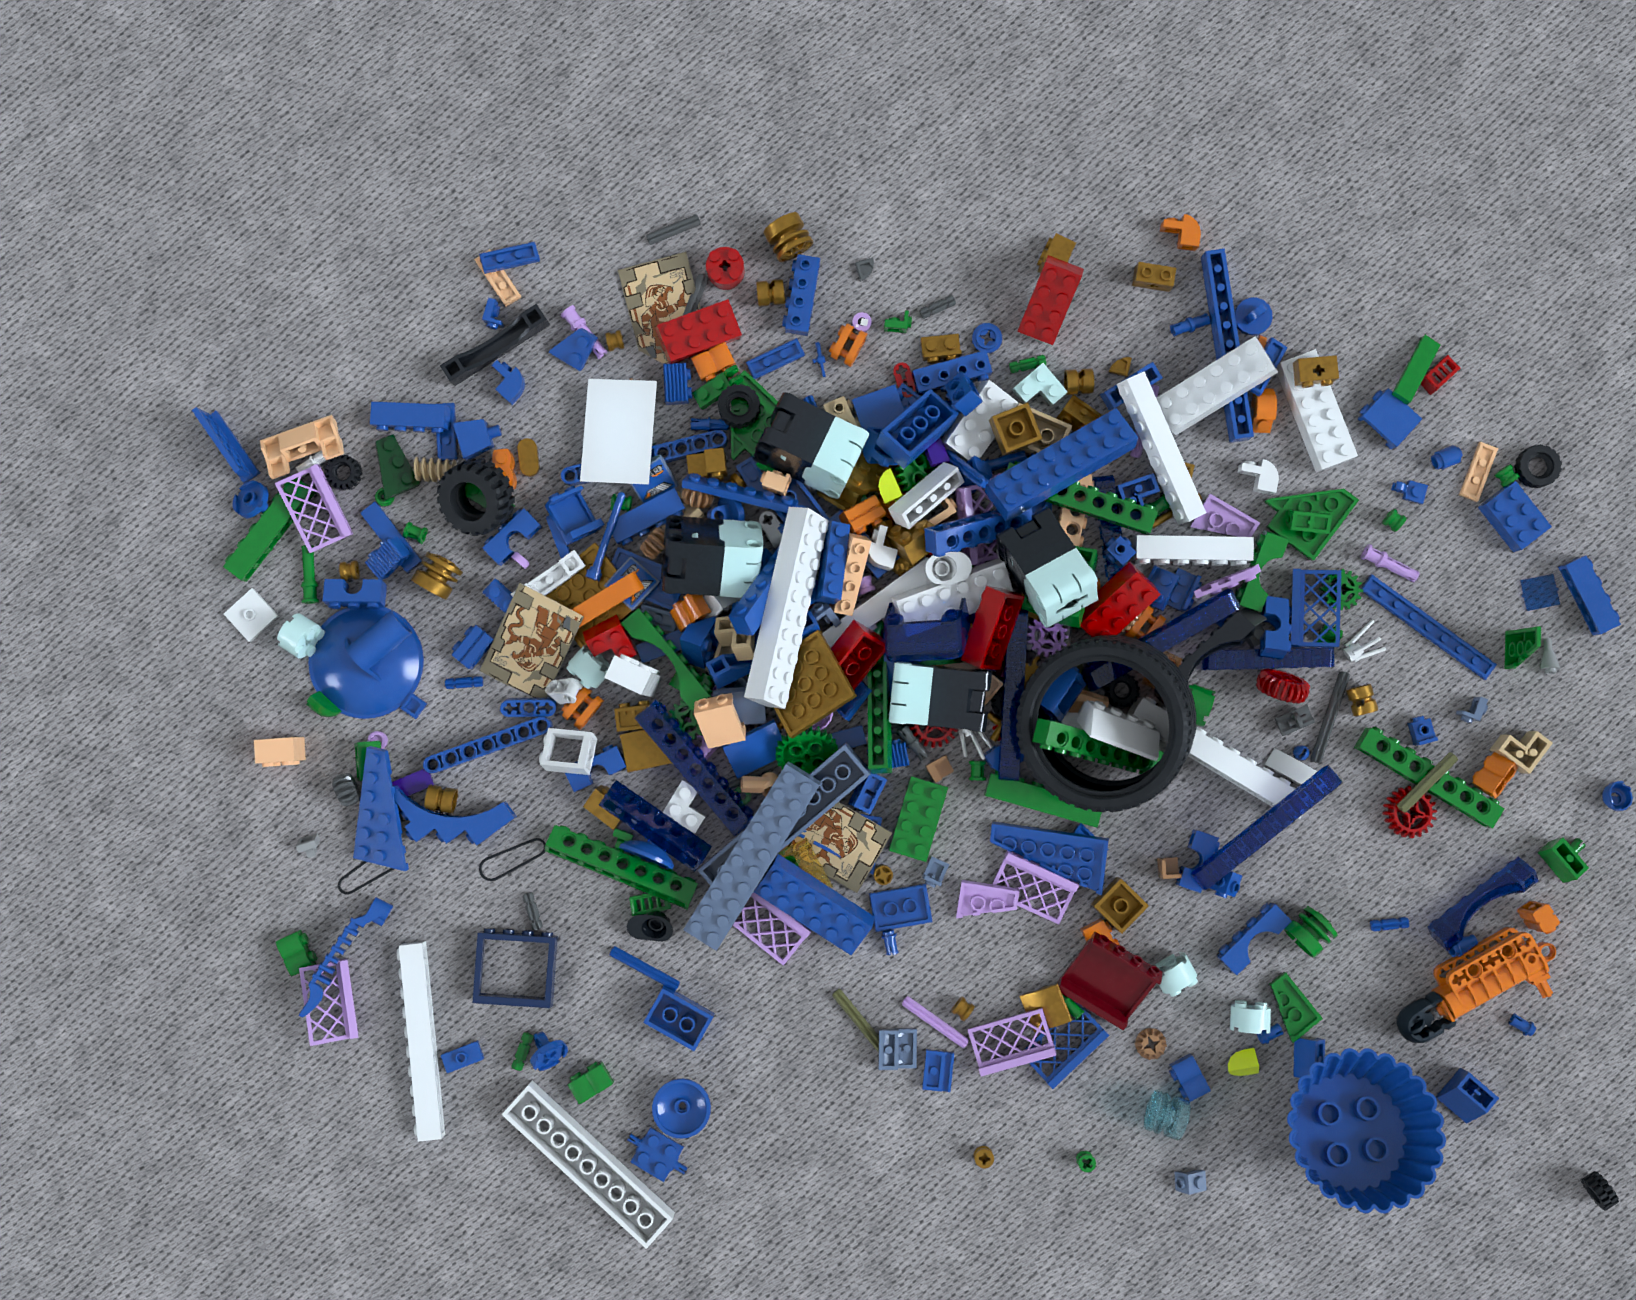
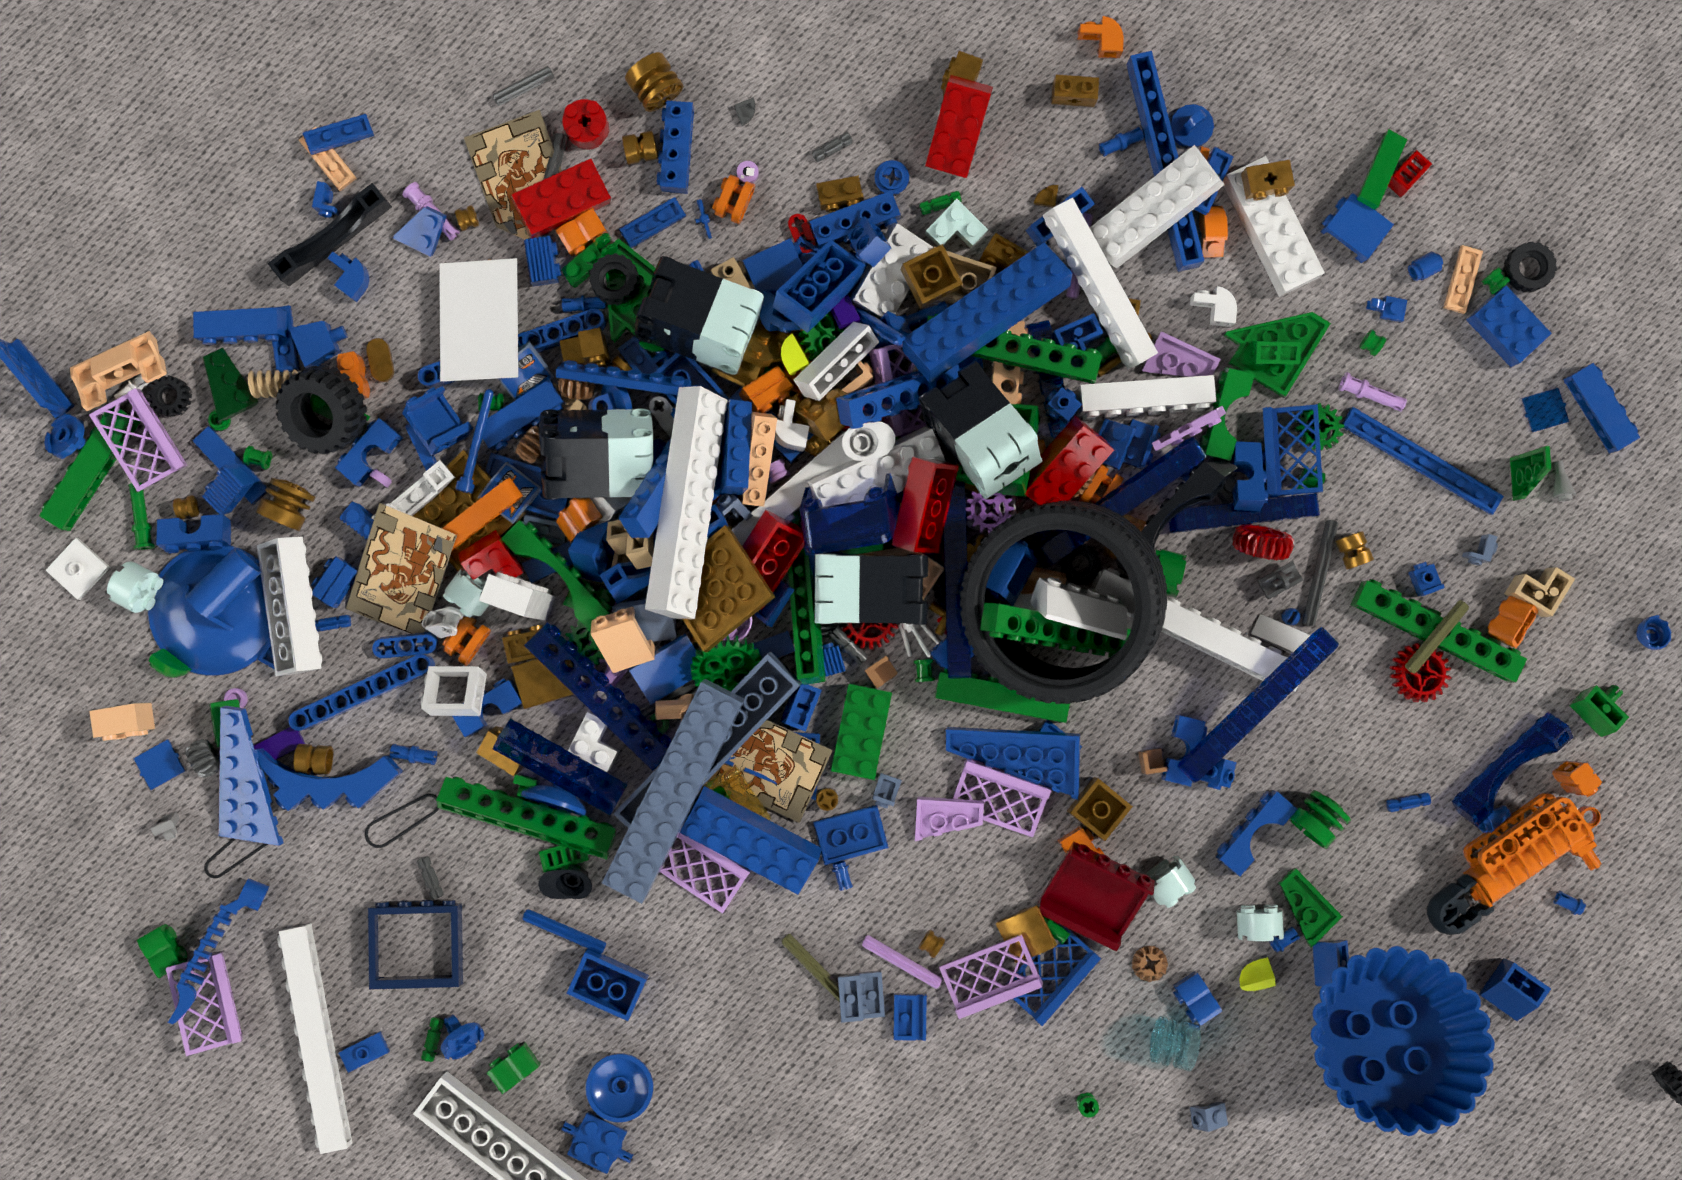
camera: 10 degrees left, 0 degrees up
(306, 791) = (159, 764): none -> blue piece
(432, 664) = (289, 606): none -> white brick
(527, 802) = (413, 754): none -> blue pin
(776, 482) = (663, 361): light nougat brick -> none
(895, 325) = (786, 172): green bracket -> none
(983, 1152) = (970, 1105): pearl gold wheel -> none
(1079, 381) = (1000, 217): pearl gold wheel -> none
(1354, 651) = (1340, 496): white plant -> none

